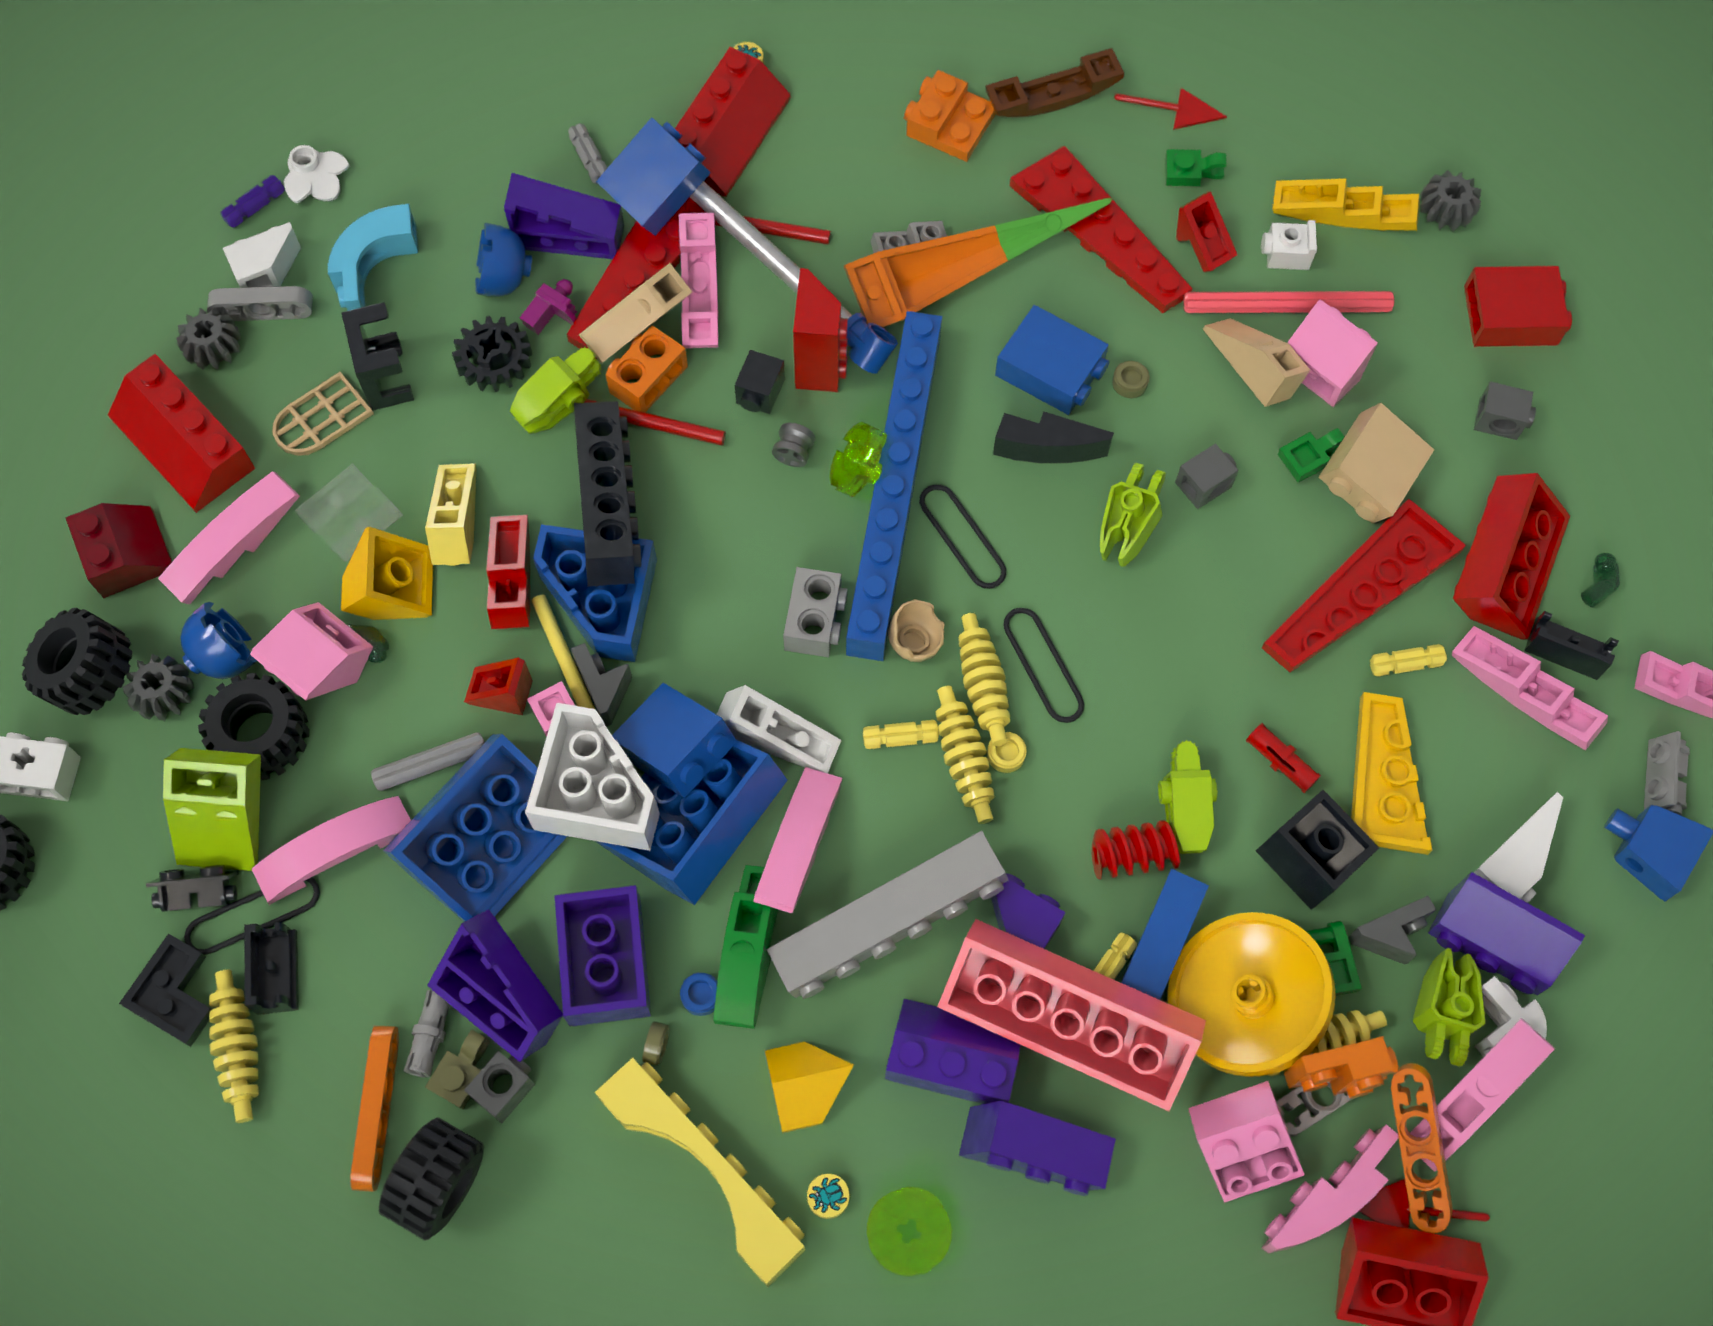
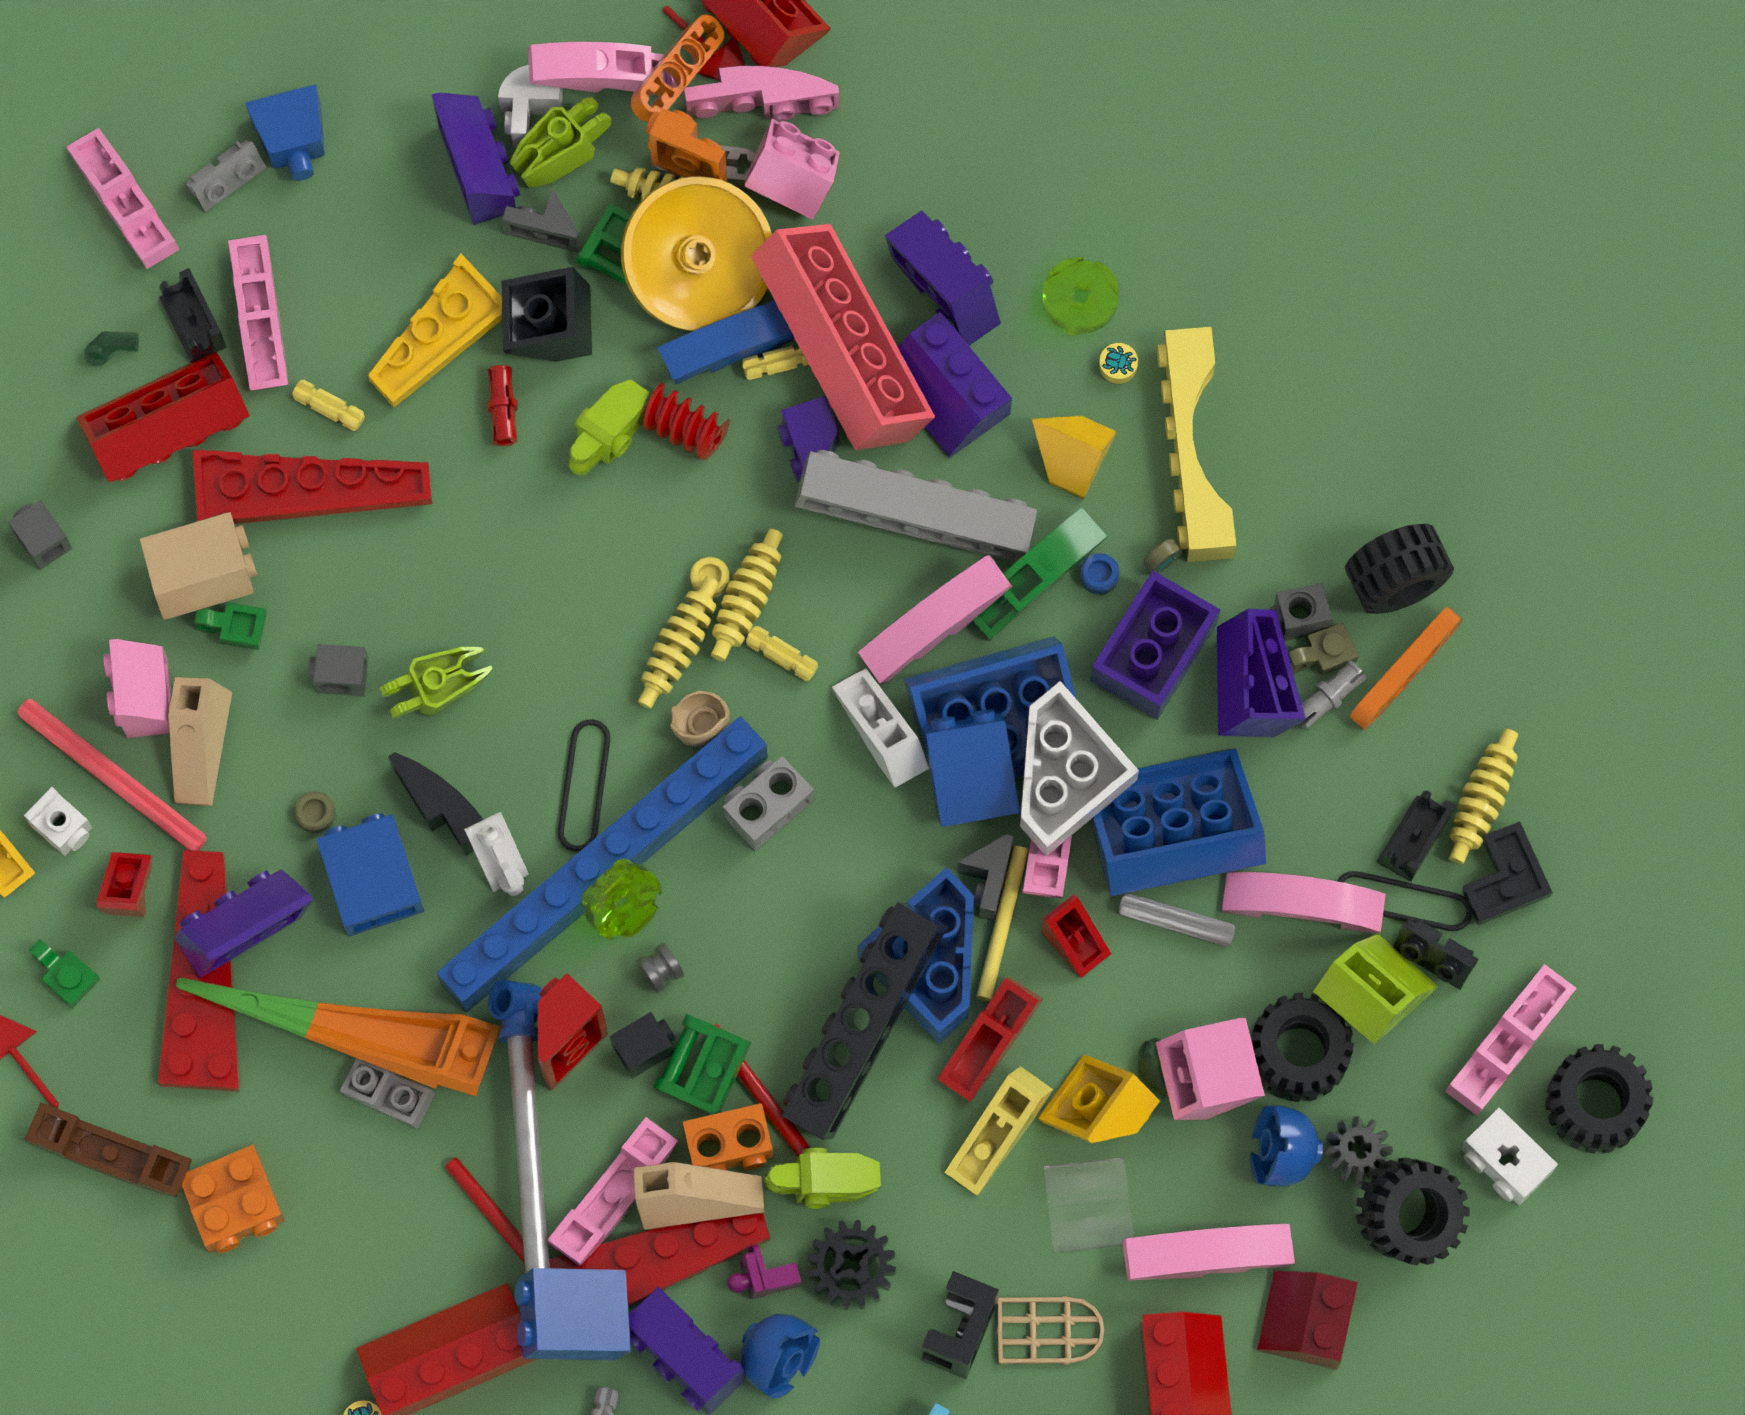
camera: 140 degrees left, 5 degrees up
(85, 864) = (1510, 1039): none -> bright pink slope
(695, 405) = (713, 1070): none -> green plate
(972, 427) = (498, 854): none -> white hinge
(1057, 657) = (600, 623): black piece -> none
(1104, 255) = (241, 920): none -> dark purple slope
(1524, 855) = (405, 199): white slope -> none

